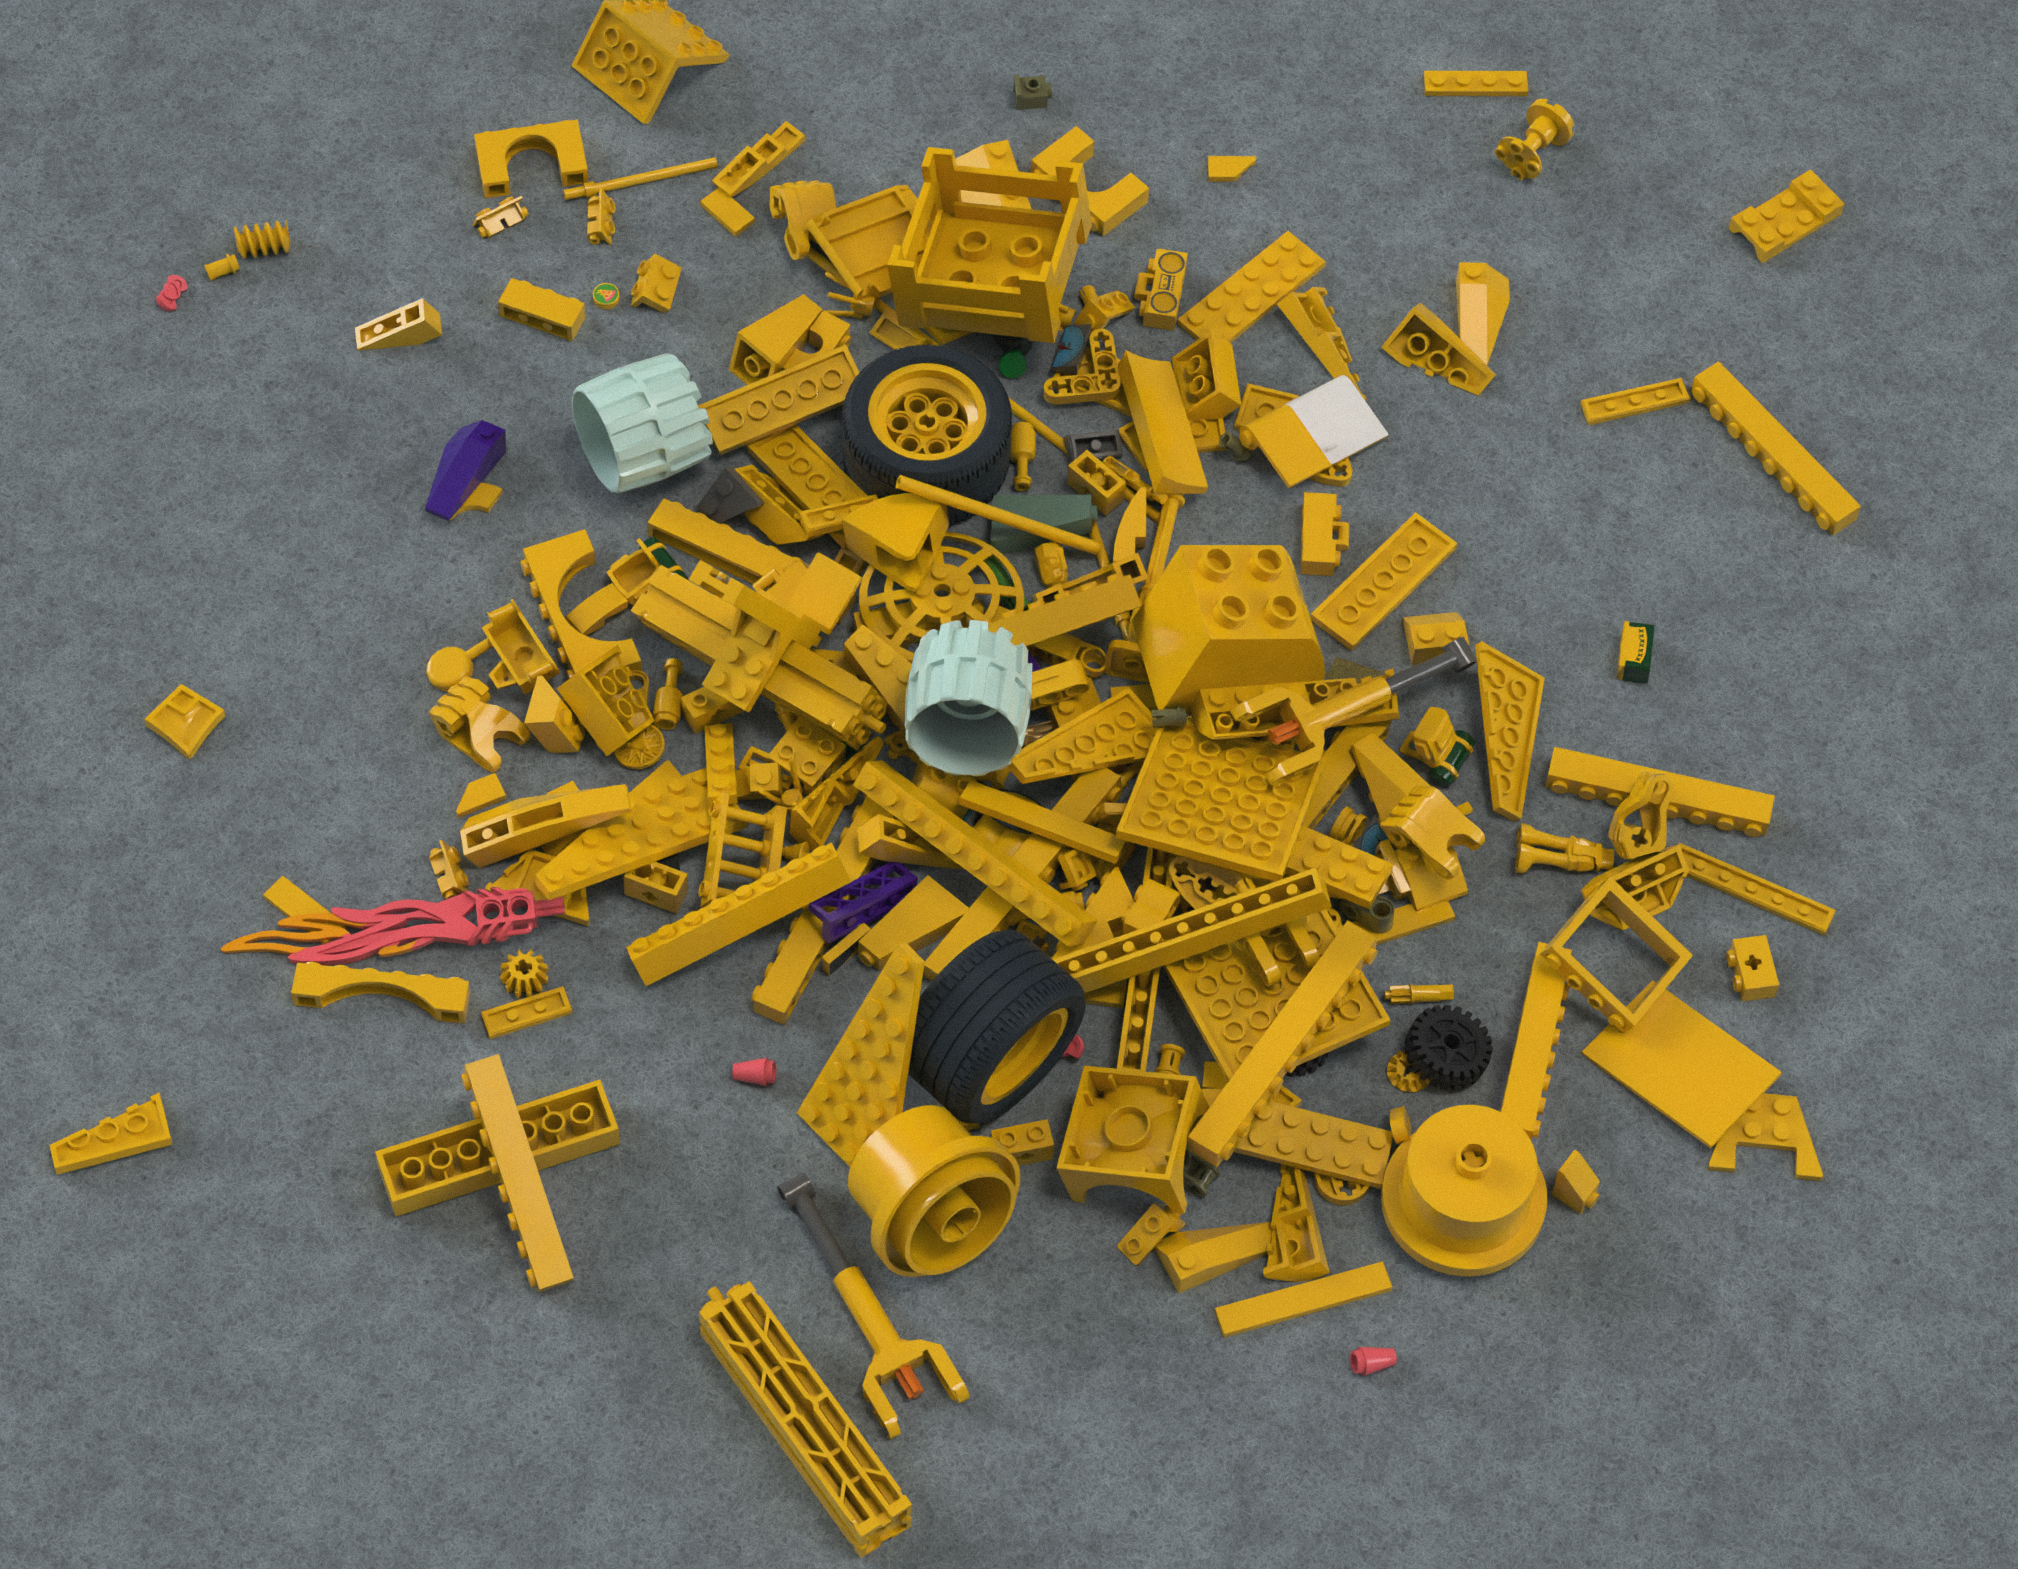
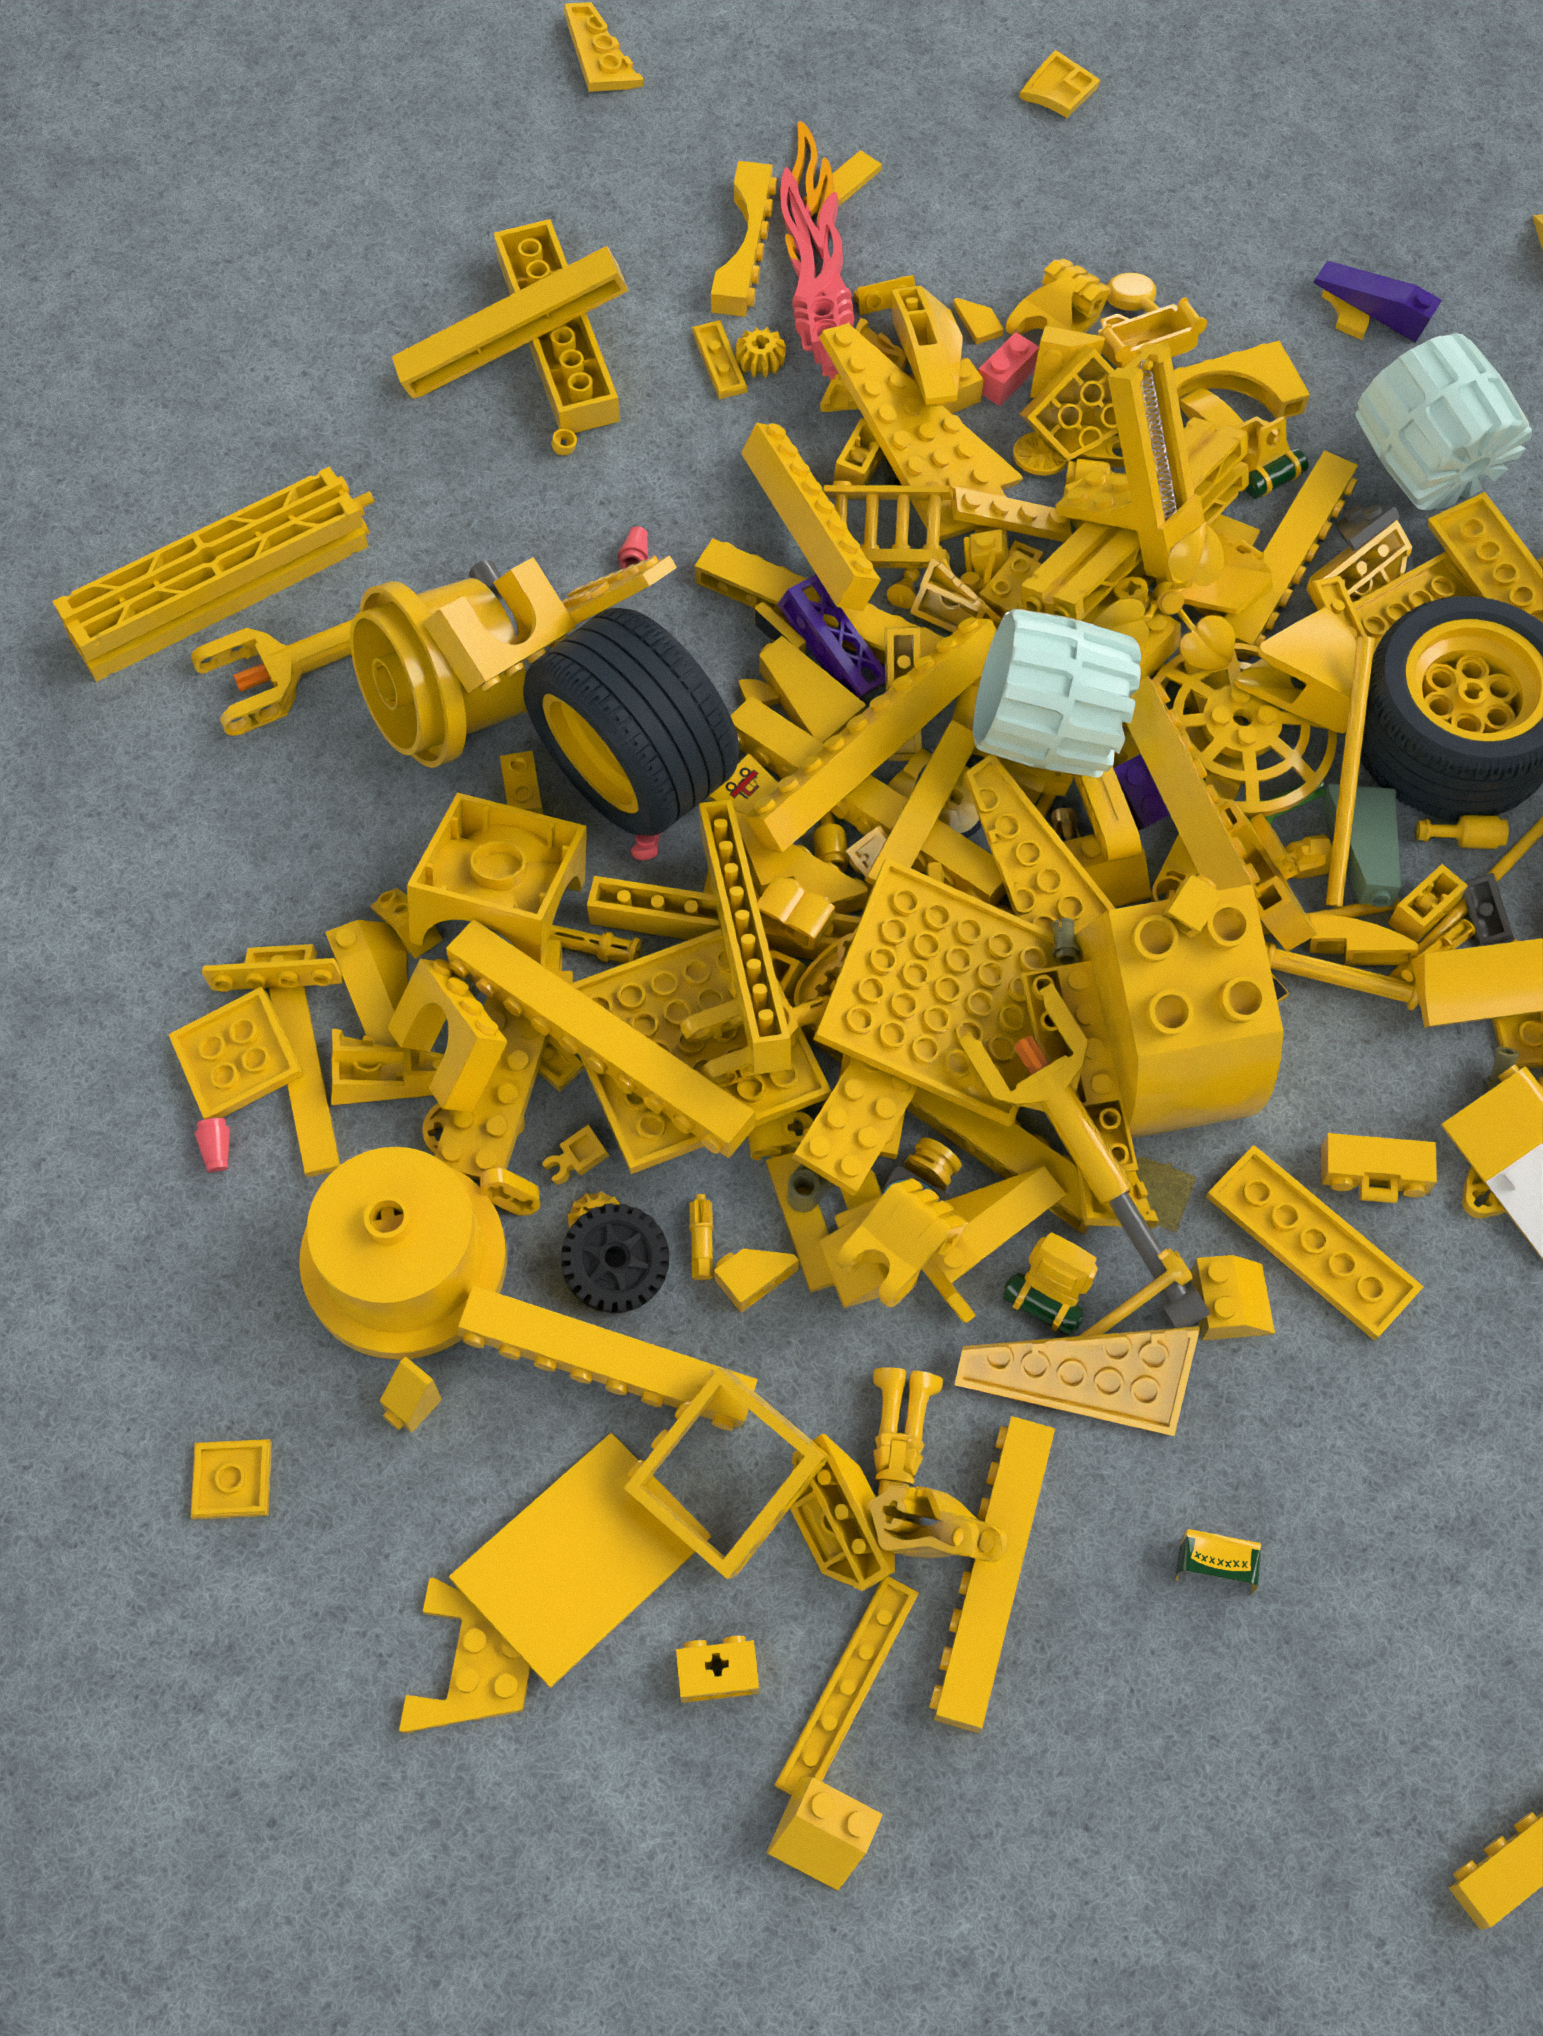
camera: 95 degrees right, 5 degrees up
(546, 764) = (1008, 368): none -> coral brick
(632, 1138) = (571, 441): none -> yellow hinge
(844, 628) = (1192, 559): none -> yellow plant
(846, 657) = (1133, 588): none -> yellow wheel
(961, 1110) = (482, 658): none -> yellow arch
(1054, 580) = (1273, 846): none -> yellow tile
(1206, 1323) = (273, 968): none -> yellow bracket
(1207, 580) = (1192, 904): none -> yellow brick
(1292, 1348) = (235, 1055): none -> yellow plate
(1295, 1128) = (473, 1037): none -> yellow arch
(1357, 1082) = (580, 1153): none -> yellow plate
(1441, 651) = (1176, 1271): none -> yellow piece
(1451, 954) = (753, 1274): none -> yellow slope
(1649, 1316) = (231, 1479): none -> yellow tile
(1855, 895) = (823, 1832): none -> yellow slope

